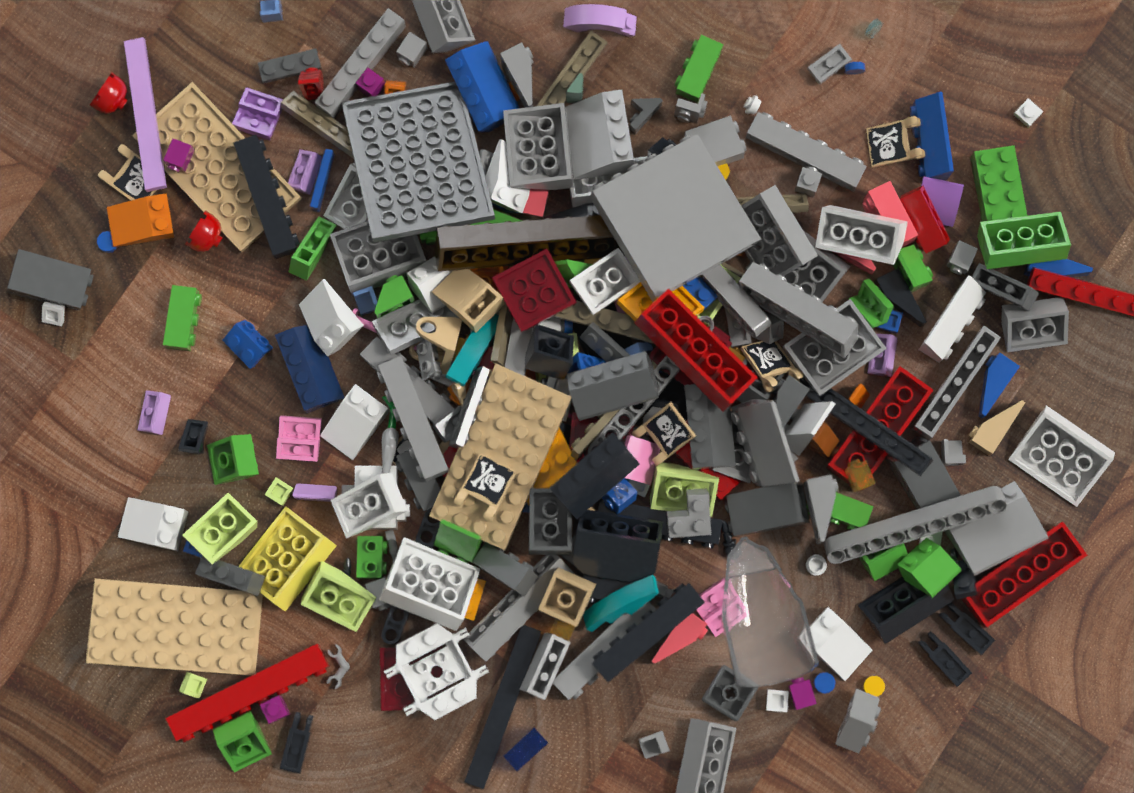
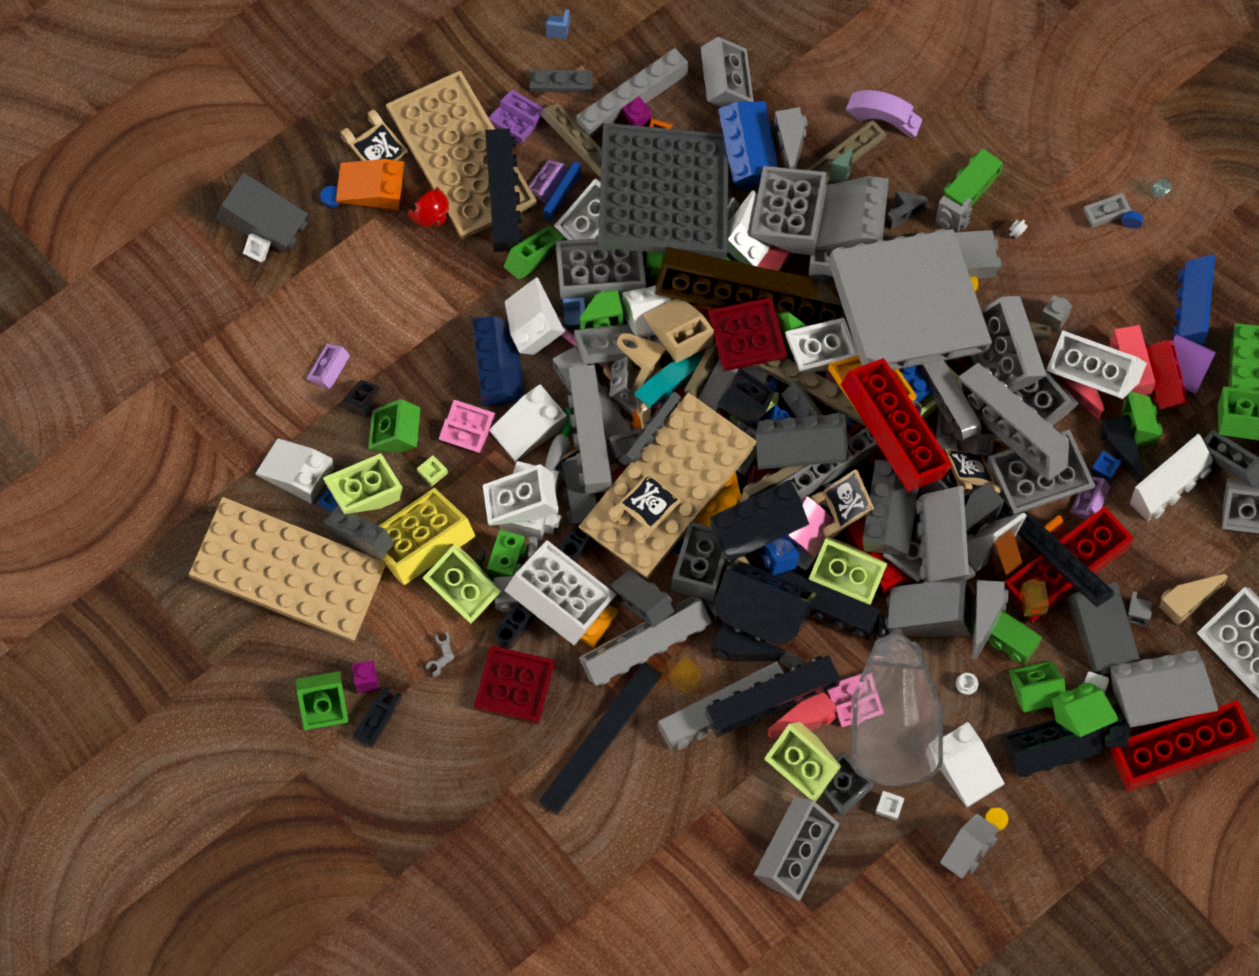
camera: 15 degrees right, 15 degrees down
(110, 95) = (375, 62): red cylinder -> none
(145, 114) = (404, 88): lavender tile -> none
(178, 155) = (427, 131): magenta brick -> none
(182, 318) = (383, 283): bright green brick -> none
(193, 685) = (288, 632): yellowish green plate -> none
(247, 343) = (441, 323): blue bracket -> none
(248, 692) = (340, 653): red brick -> none
(311, 83) = (578, 98): red slope -> none
(315, 492) = (465, 482): lavender slope -> none
(411, 50) = (687, 94): light grey brick -> none
(419, 675) = (538, 704): white piece -> none
(457, 541) = (601, 556): bright green slope -> none
(525, 749) = (612, 783): clear blue brick -> none
(544, 666) = (655, 705): light grey brick -> none
(567, 597) = (698, 638): tan brick -> none
(622, 601) = (757, 659): teal slope -> none
(653, 744) = (747, 814): light grey panel -> none
(691, 685) = (803, 760): none -> yellowish green slope
(694, 520) = (853, 596): light grey brick -> none
(801, 693) = (917, 805): magenta brick -> none
(805, 151) = (1057, 280): light grey brick -> none
(824, 682) = (944, 802): blue tile -> none
(872, 304) = (1093, 442): bright green bracket -> none
(890, 142) = (1151, 297): flag -> none
(915, 524) = (1089, 667): light grey beam -> none
(946, 660) = (1079, 812): black hinge -> none
(956, 383) = (1160, 540): light grey brick -> none
(961, 258) = (1196, 422): light grey brick -> none
(968, 630) = (1111, 788): black hinge -> none
(996, 378) = (1207, 546): blue slope -> none

